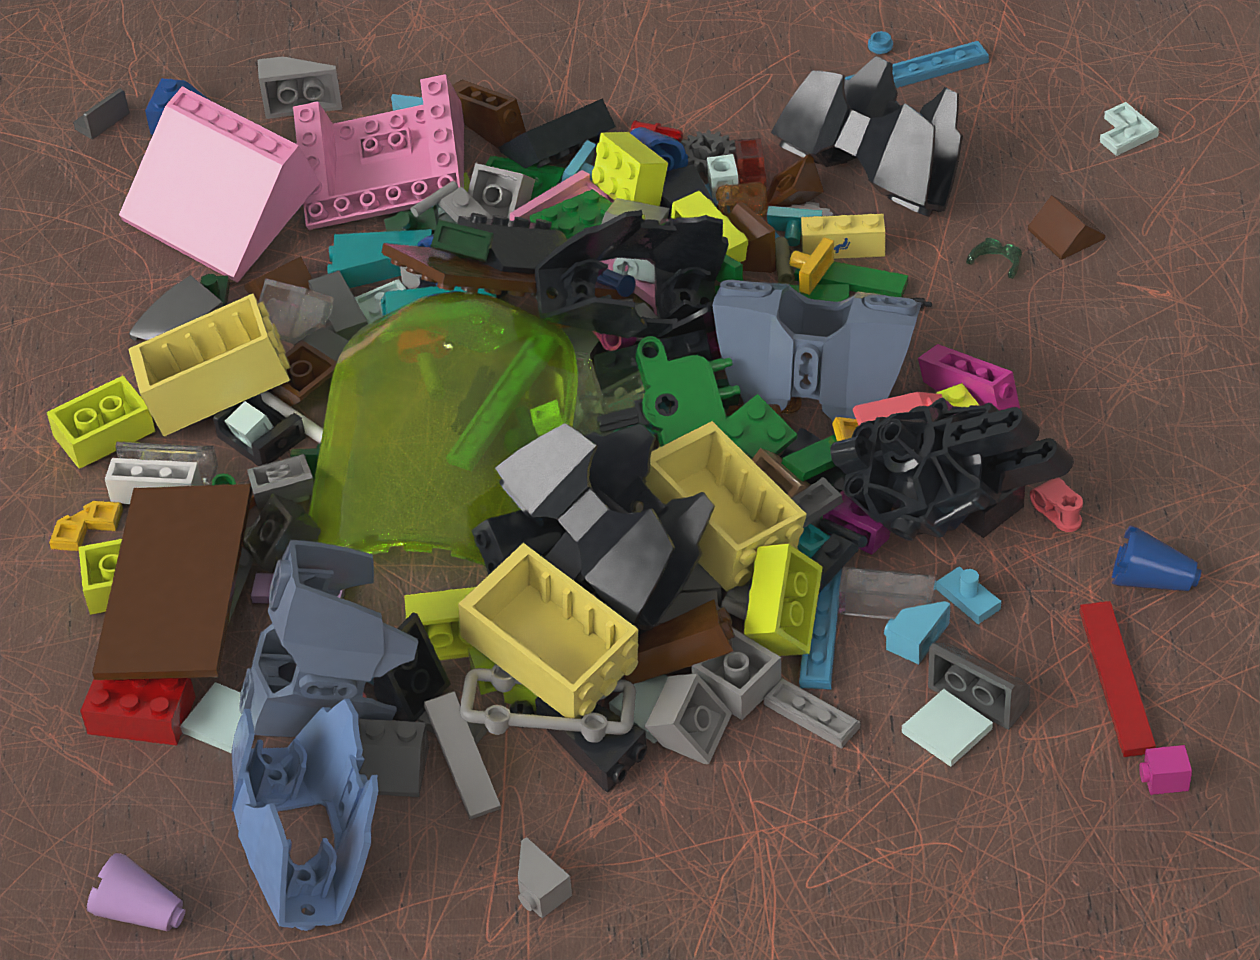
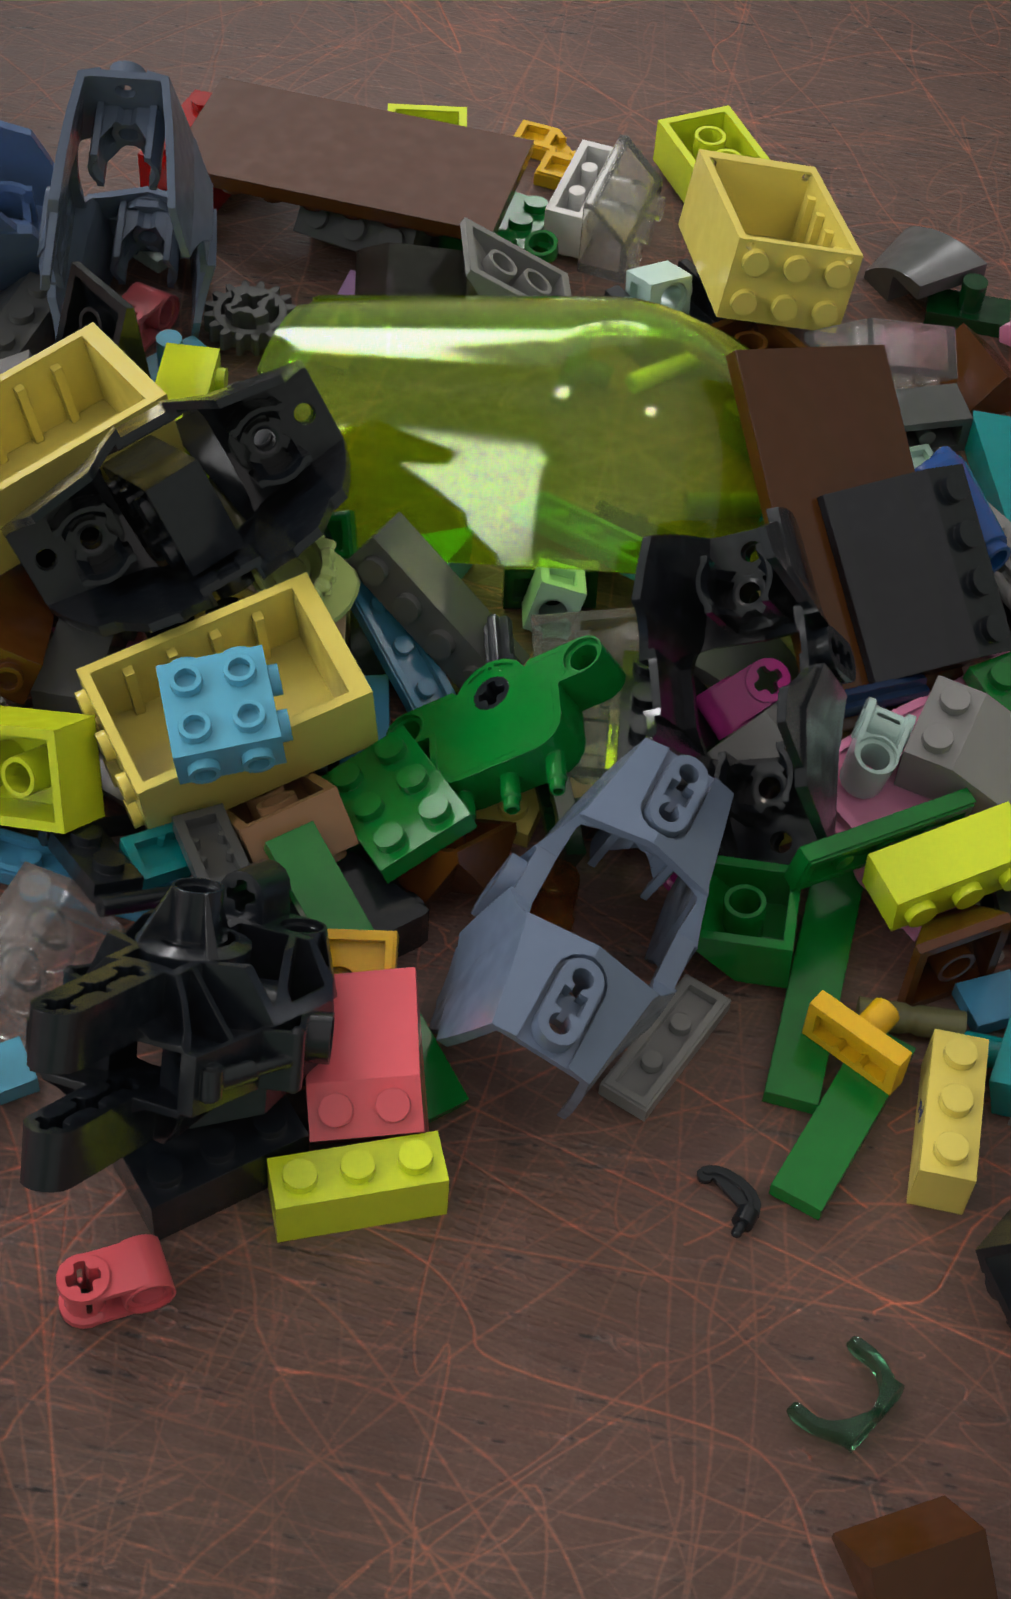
camera: 95 degrees right, 5 degrees up
(462, 240) = (882, 444): dark green tile -> none
(756, 471) = (223, 714): none -> medium azure brick
(985, 382) = (459, 1217): dark pink slope -> none

